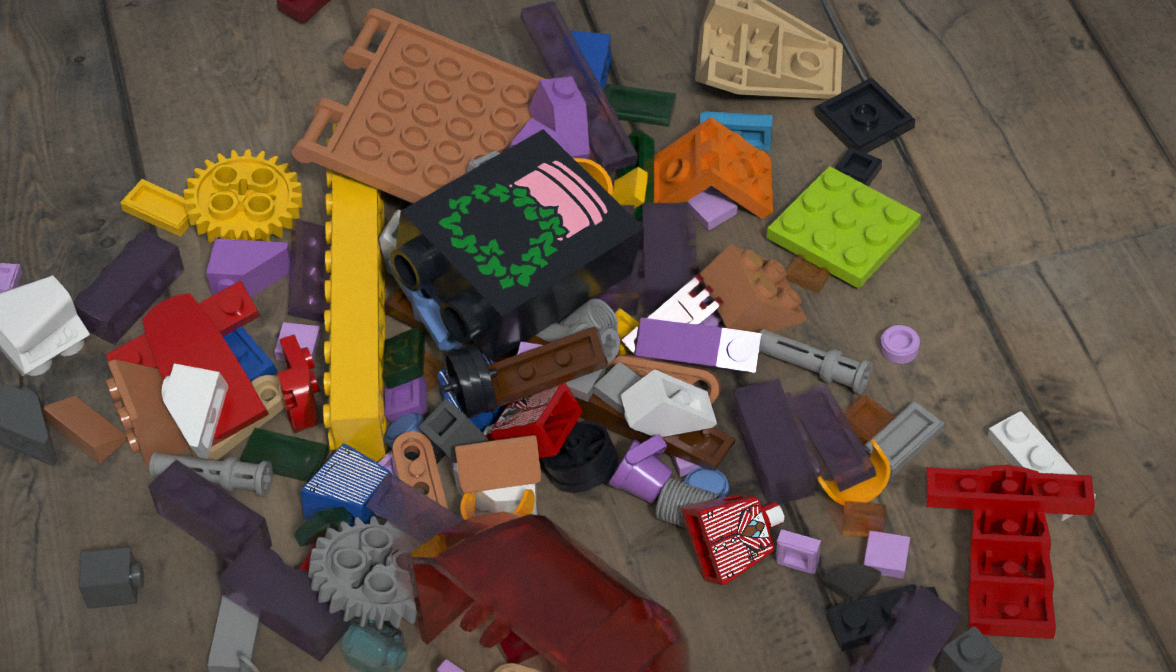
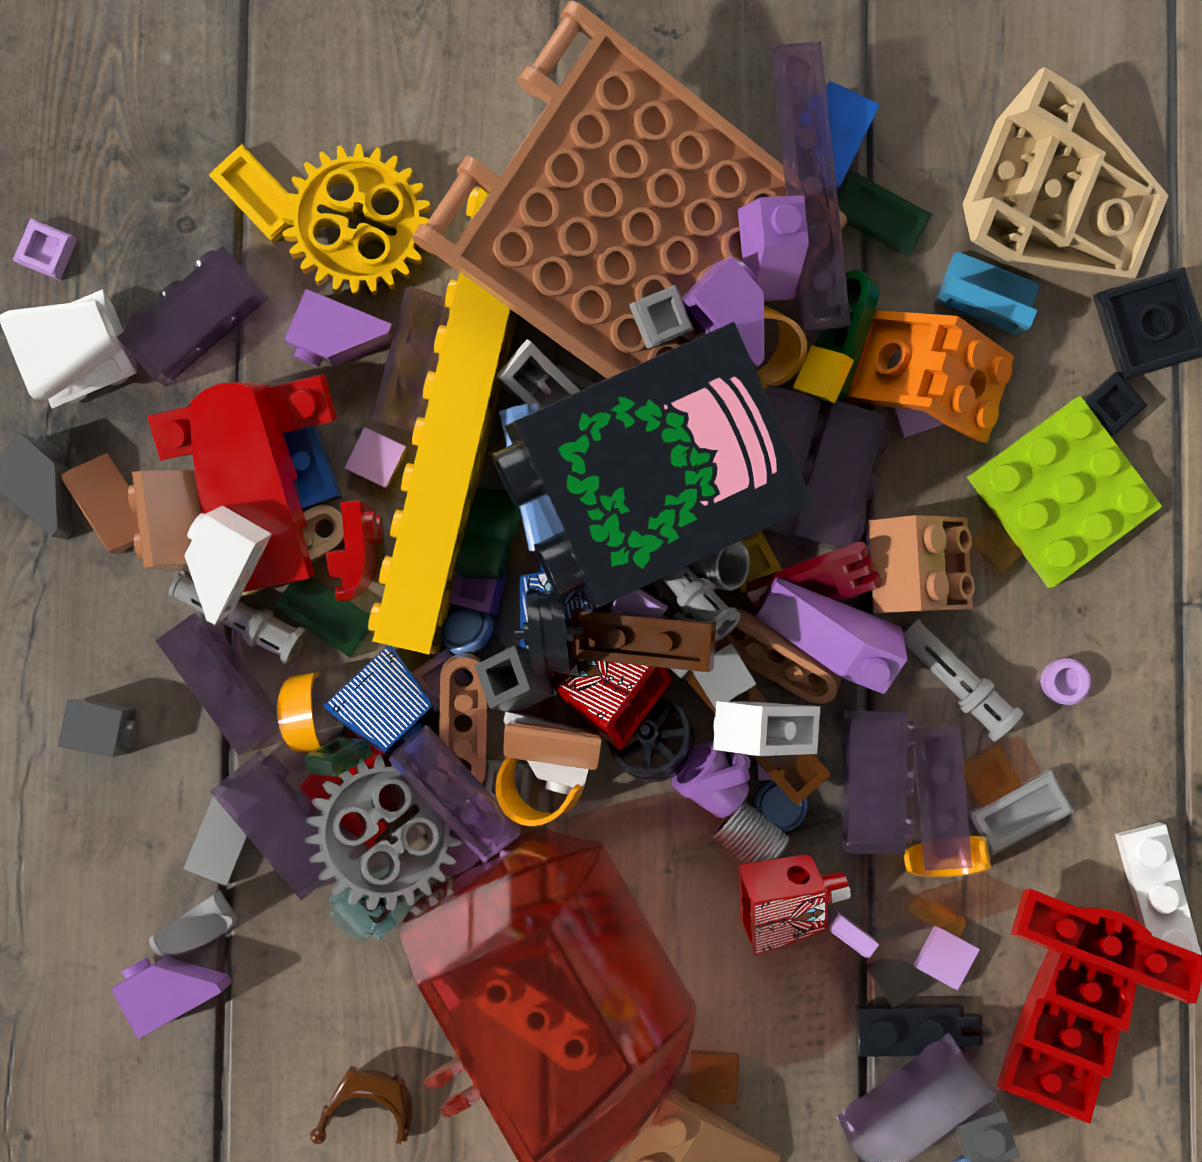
camera: 15 degrees right, 35 degrees up
(284, 520) = (296, 713): none -> light orange helmet

